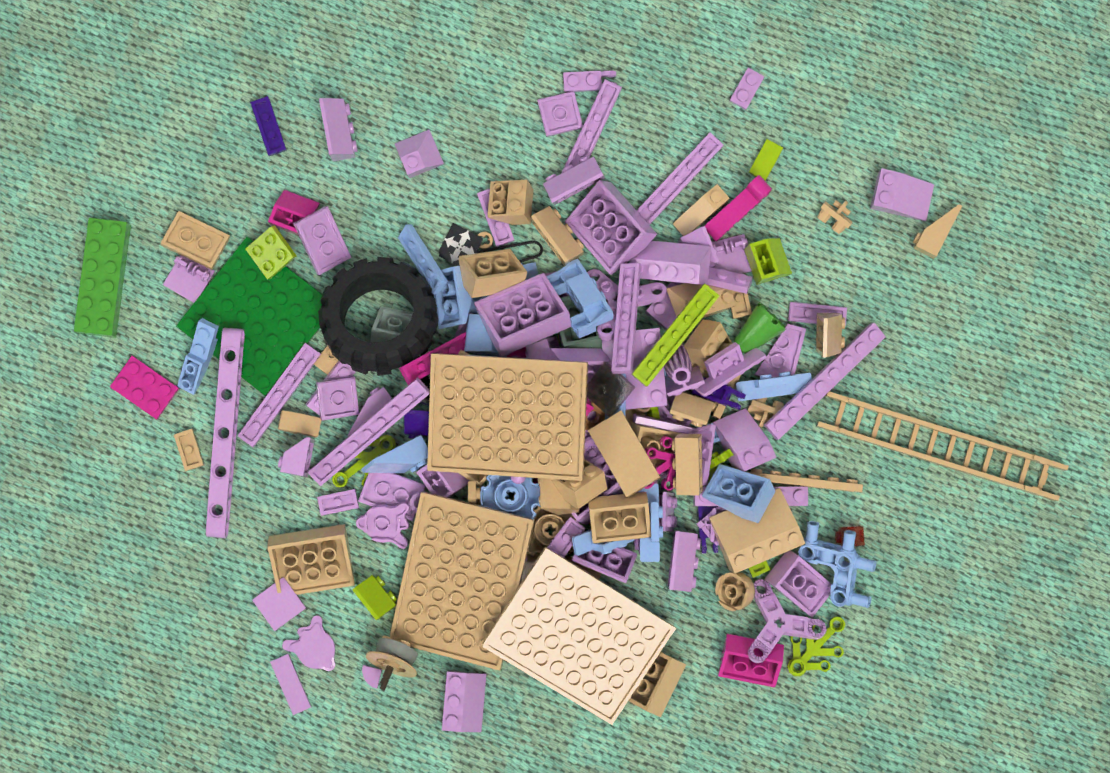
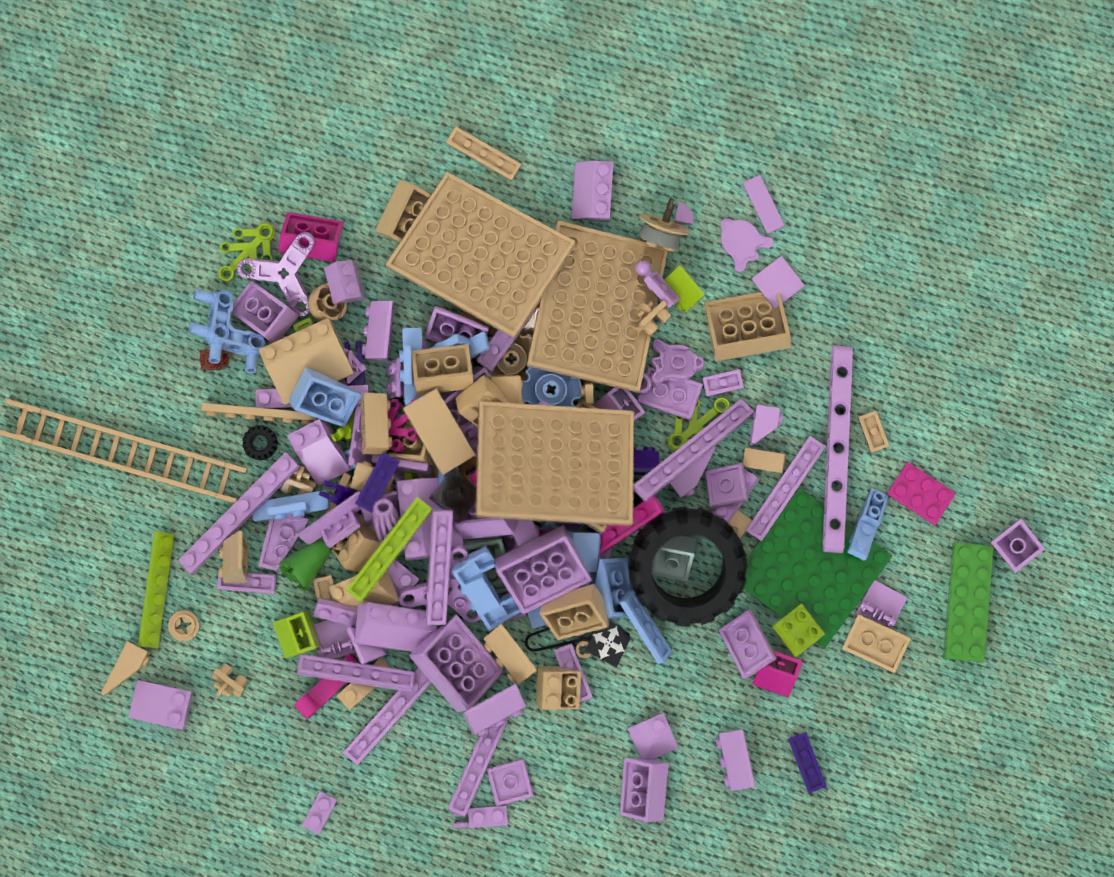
camera: 175 degrees right, 0 degrees up
(50, 332) = (1017, 545): none -> lavender slope
(398, 572) = (647, 324): none -> tan hips
(400, 601) = (657, 284): none -> lavender plate
(405, 458) = (652, 428): light blue slope -> none
(429, 102) = (644, 789): none -> lavender slope
(574, 743) = (483, 153): none -> tan plate
(686, 403) = (377, 482): none -> dark purple plate
(711, 219) = (356, 673): none -> lavender tile
(717, 611) = (344, 282): none -> lavender slope
(766, 159) = (299, 738): lime tile -> none
(812, 444) = (248, 442): none -> black tyre
(884, 264) = (175, 621): none -> tan gear
(907, 307) = (156, 589): none -> lime plate

